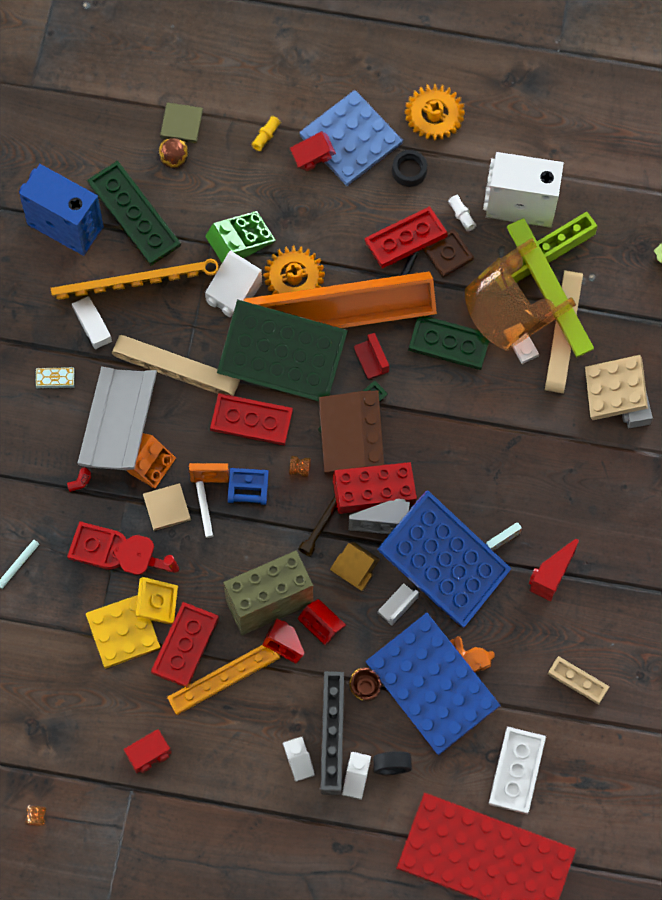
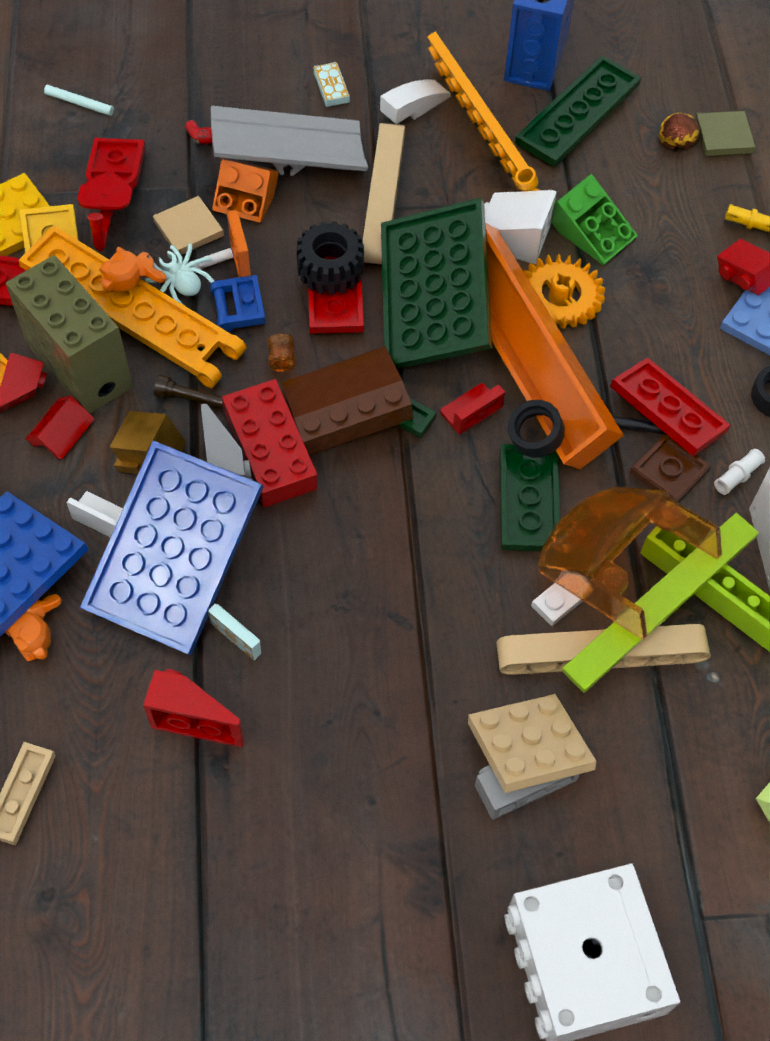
camera: 75 degrees right, 10 degrees down
(215, 549) = (126, 268): none -> orange animal
(216, 519) = (180, 274): none -> light aqua animal
(233, 399) = (330, 241): none -> black tyre
(233, 557) = (143, 310): none -> light orange hinge
(425, 321) = (528, 410): none -> black tyre

